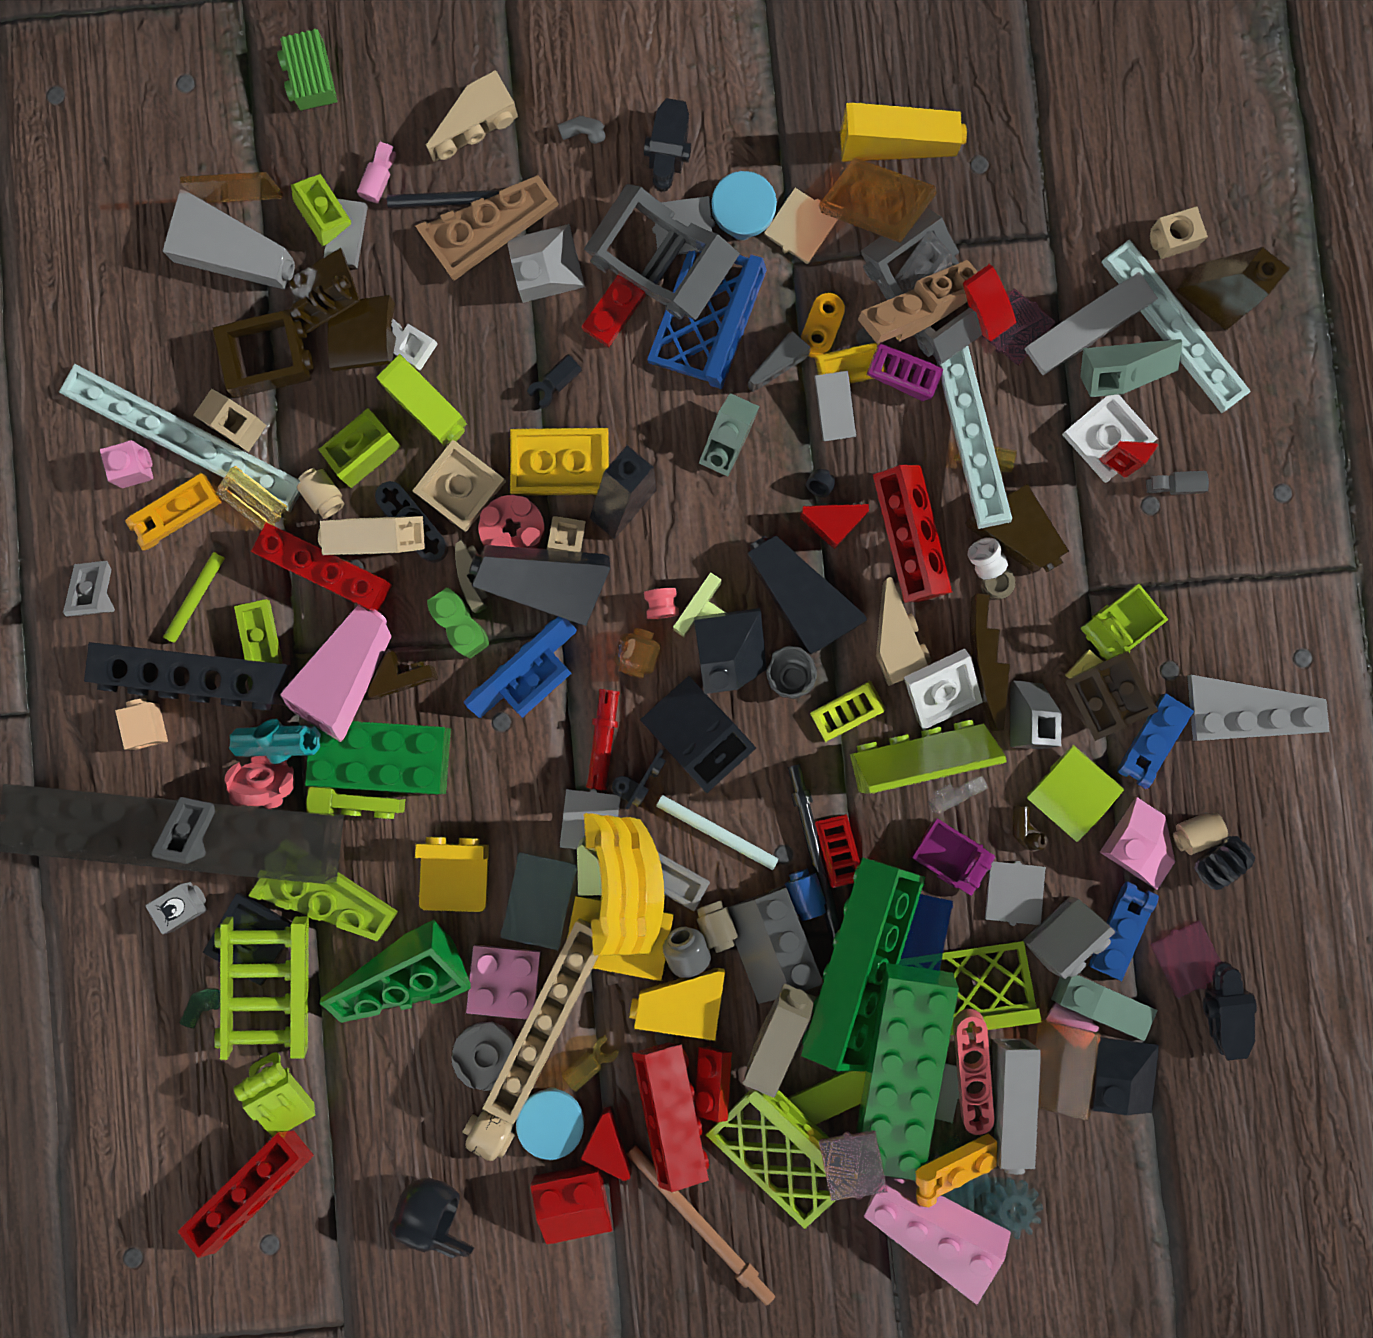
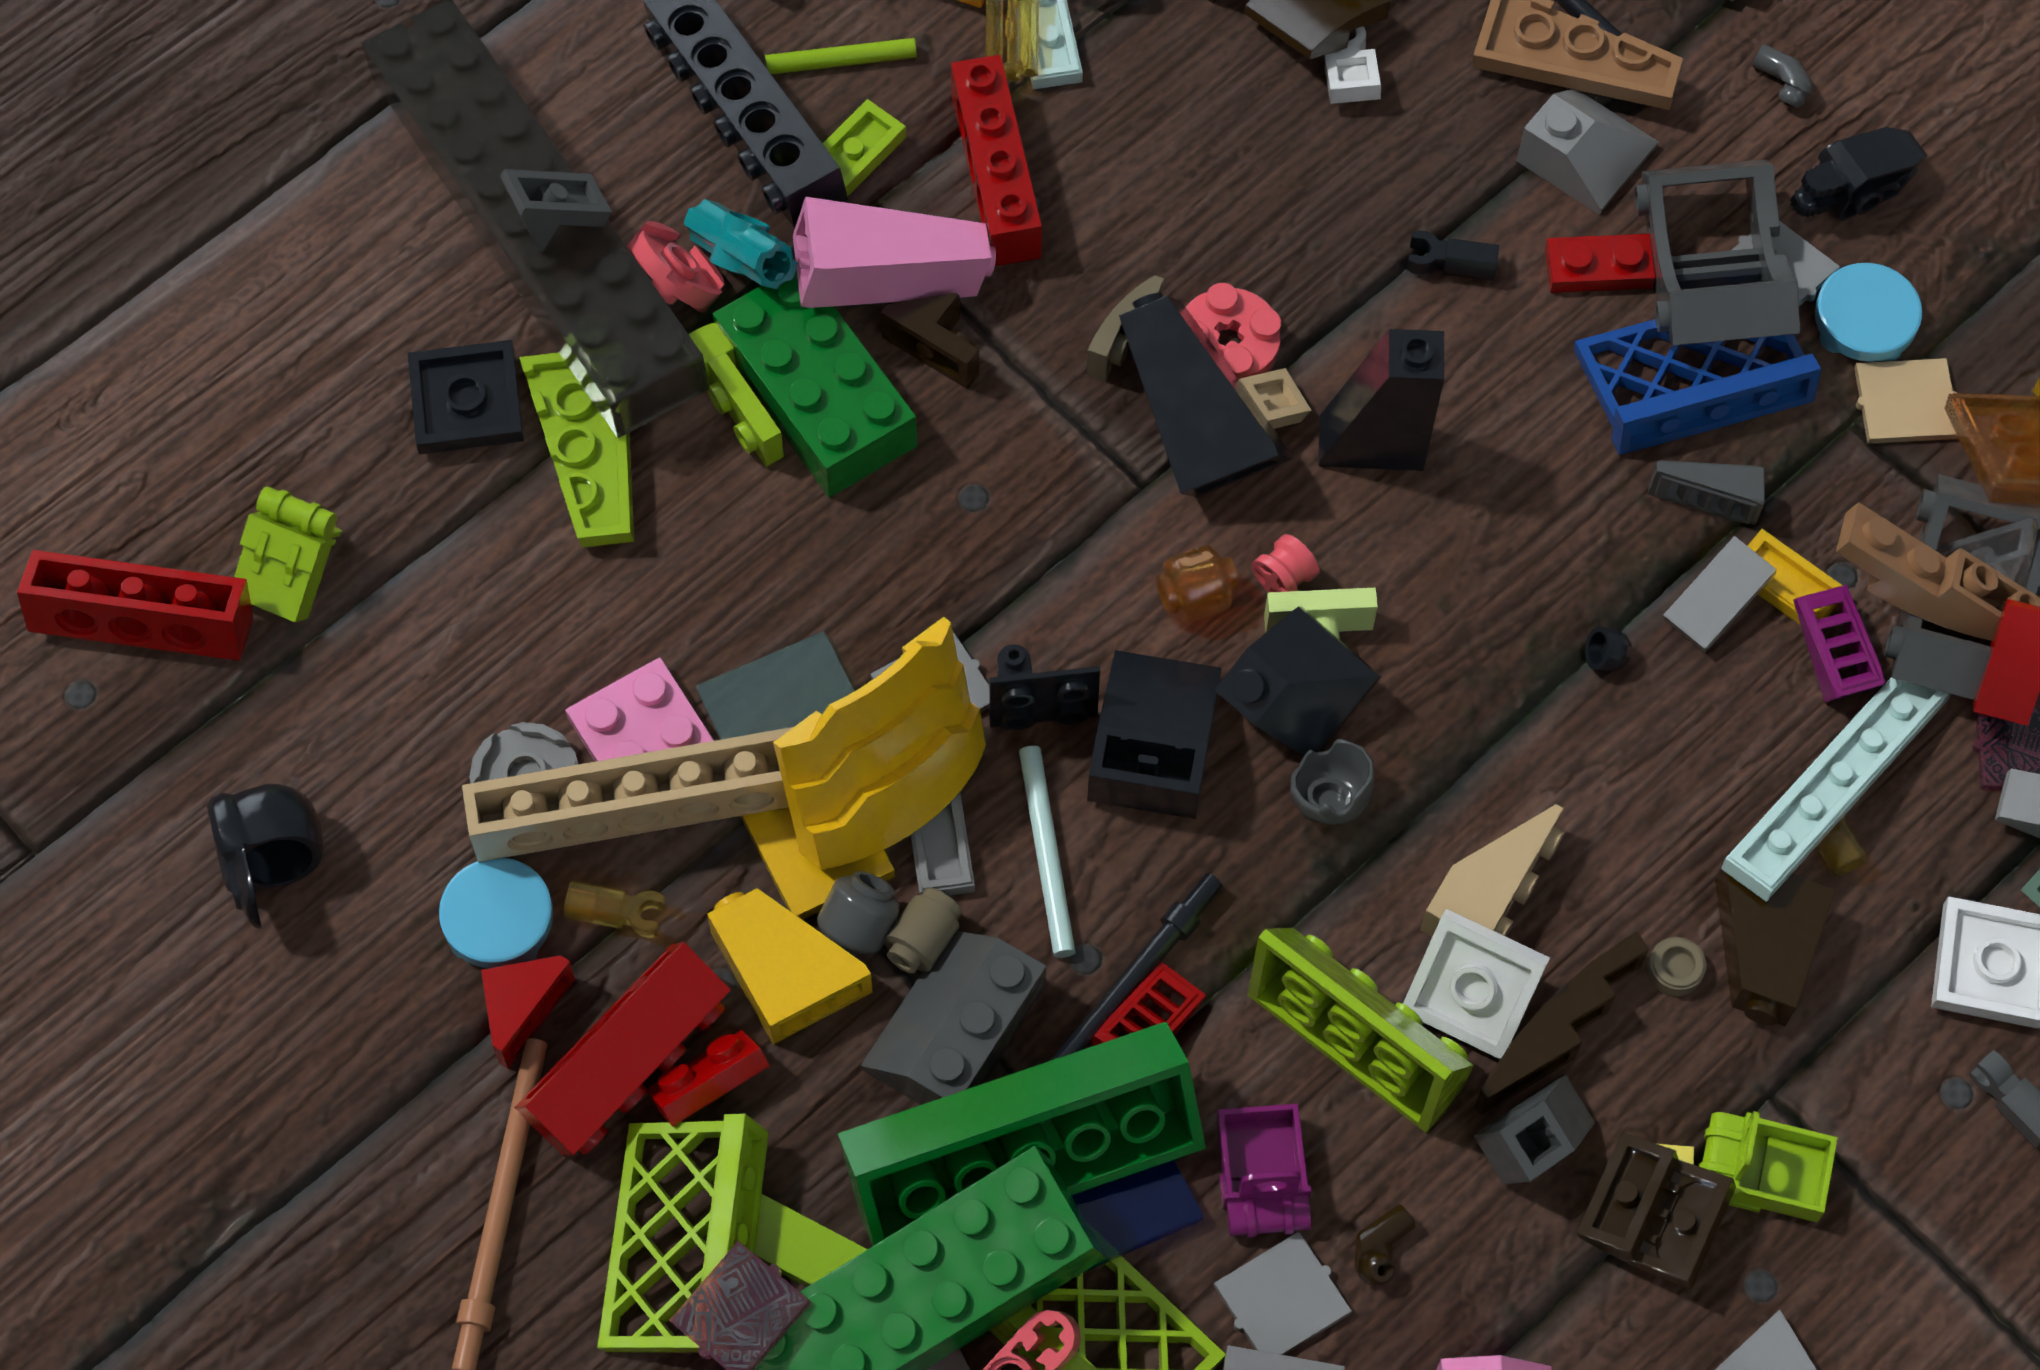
camera: 50 degrees right, 20 degrees down
(141, 724) = (637, 101): light nougat brick -> none
(177, 907) = (442, 289): light grey brick -> none
(198, 1003) = (339, 399): clear green arm -> none
(293, 1003) = (424, 496): lime fence -> none
(320, 492) = (1085, 98): tan brick -> none
(359, 448) = (1176, 107): lime slope -> none
(371, 535) = (1085, 174): tan window -> none
(389, 509) = (1130, 203): black beam -> none
(409, 971) = (563, 604): green wedge -> none
(422, 401) = (1295, 121): lime slope -> none
(453, 874) = (736, 566): yellow bracket -> none
(454, 615) = (1057, 353): bright green brick -> none
(459, 485) = (1228, 240): tan plate -> none
(488, 1135) = (424, 847): tan head -> none
(528, 674) = (1062, 473): blue bracket -> none
(558, 461) = (1342, 315): yellow tile -> none
(571, 1204) = (406, 1014): red slope -> none
(603, 739) = (1071, 614): red pin -> none
(728, 434) = (1569, 494): sand green slope -> none
(778, 1040) = (821, 1099): dark tan slope -> none
(805, 599) = (1441, 740): black slope -> none
(806, 894) = (1056, 1014): blue brick -> none
(823, 323) = (1810, 510): light orange plate -> none
(833, 521) = (1575, 700): red slope -> none
(871, 695) = (1358, 923): neon yellow slope -> none
(912, 533) = (1642, 799): red brick -> none
(948, 796) = (1341, 1107): clear plate -> none
(987, 558) = (1695, 919): white wheel -> none
(1075, 793) = (1485, 1272): lime slope -> none
(1128, 456) = (1986, 977): red slope -> none
(1155, 740) = (1649, 1331): blue plate -> none

